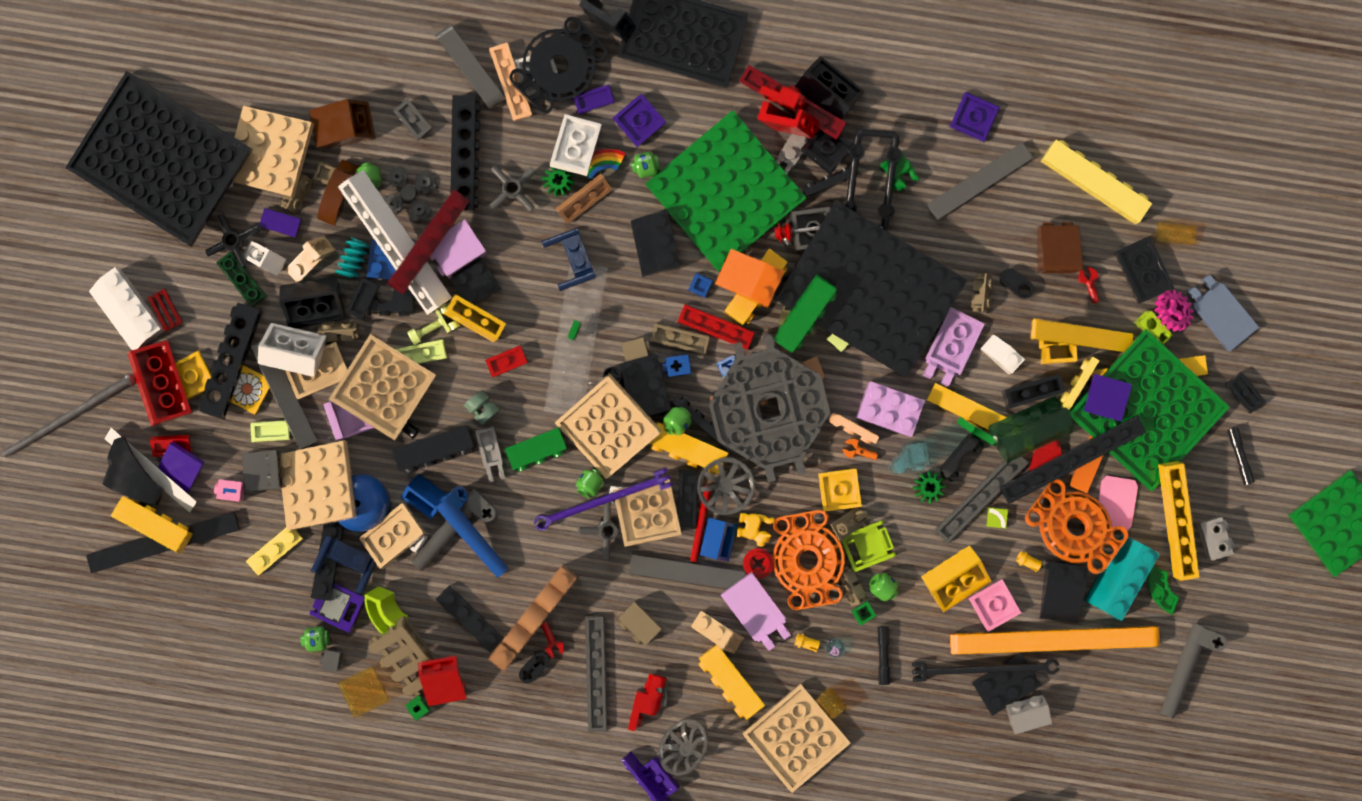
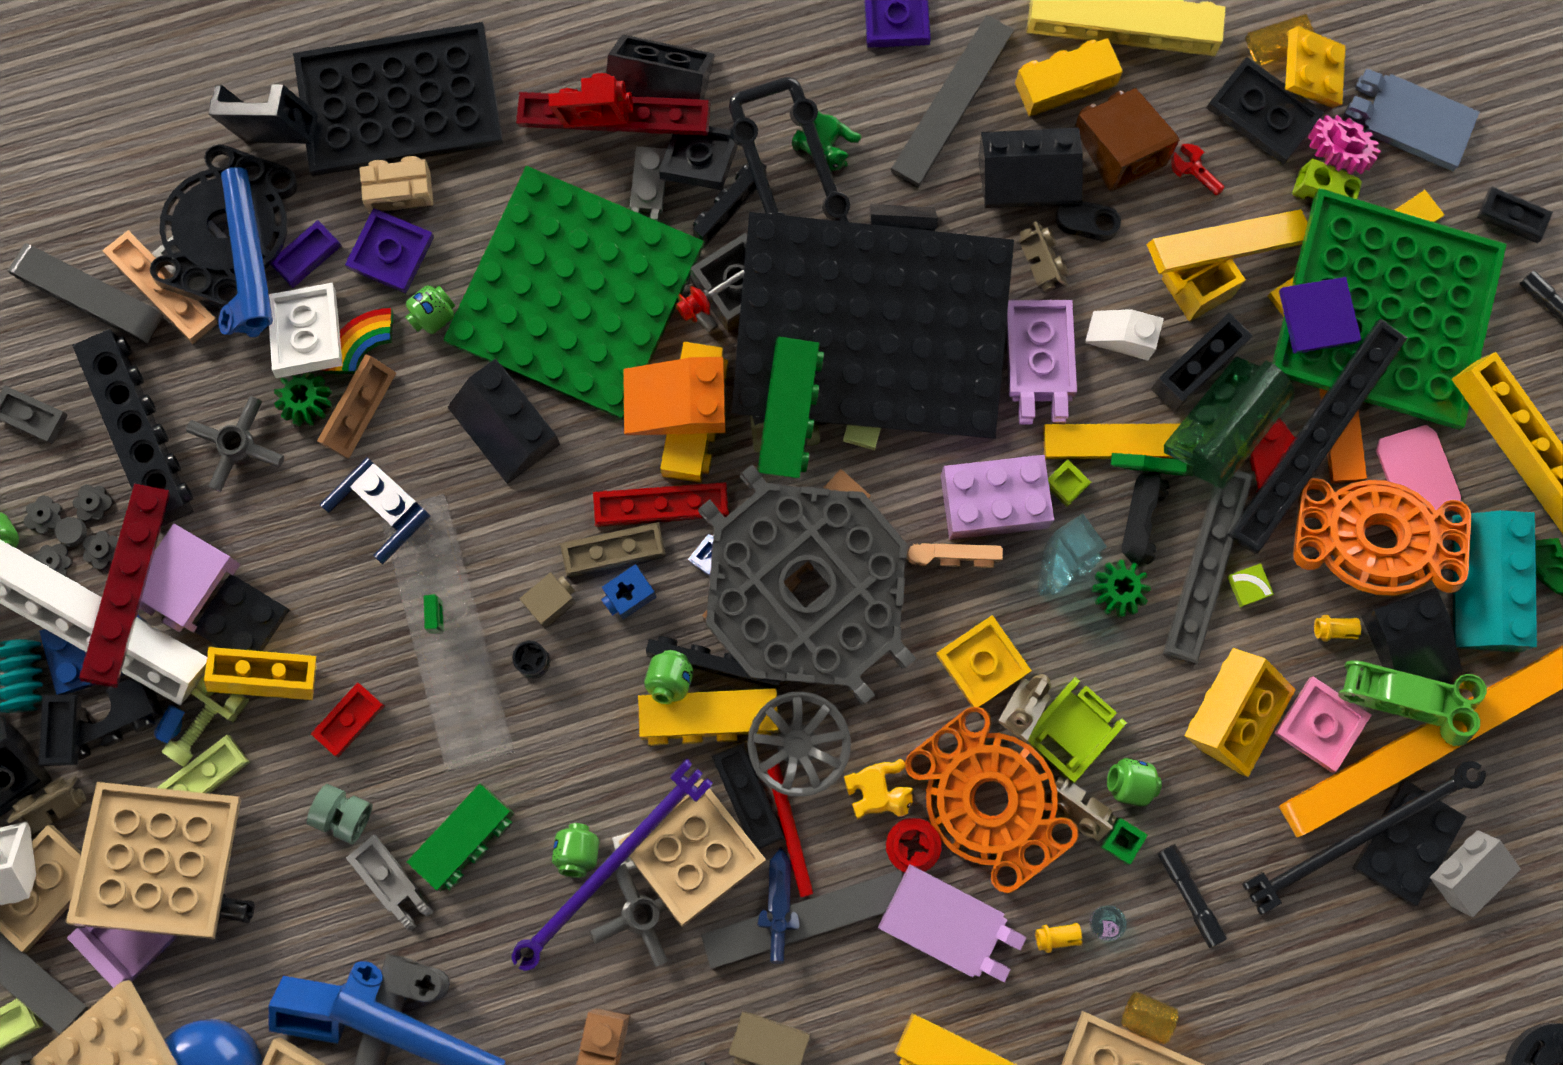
camera: 25 degrees left, 10 degrees down
(416, 319) = (170, 724): none -> blue tile
(434, 448) = (288, 920): black brick -> none
(554, 121) = (251, 308): none -> blue axle
(608, 426) = (560, 740): tan plate -> none
(645, 384) = (591, 650): black brick -> none
(659, 85) = (396, 184): none -> tan brick
(677, 559) = (779, 906): none -> dark blue sword
(700, 285) = (605, 452): blue tile -> none
(717, 632) = (904, 994): tan bracket -> none
(718, 539) = (830, 838): blue brick -> none
(804, 124) = (620, 143): red panel -> none
(858, 450) = (980, 587): orange bar -> none
(917, 236) = (904, 216): none -> black tile
(931, 419) = (1067, 483): none -> lime tile
(999, 242) = (1031, 167): none -> black slope
(1045, 615) = (1416, 697): none -> bright green piece
(1047, 198) = (1068, 76): none -> yellow brick
(1078, 382) = (1262, 316): light yellow plate -> none
(1183, 260) = (1315, 67): none -> yellow plate

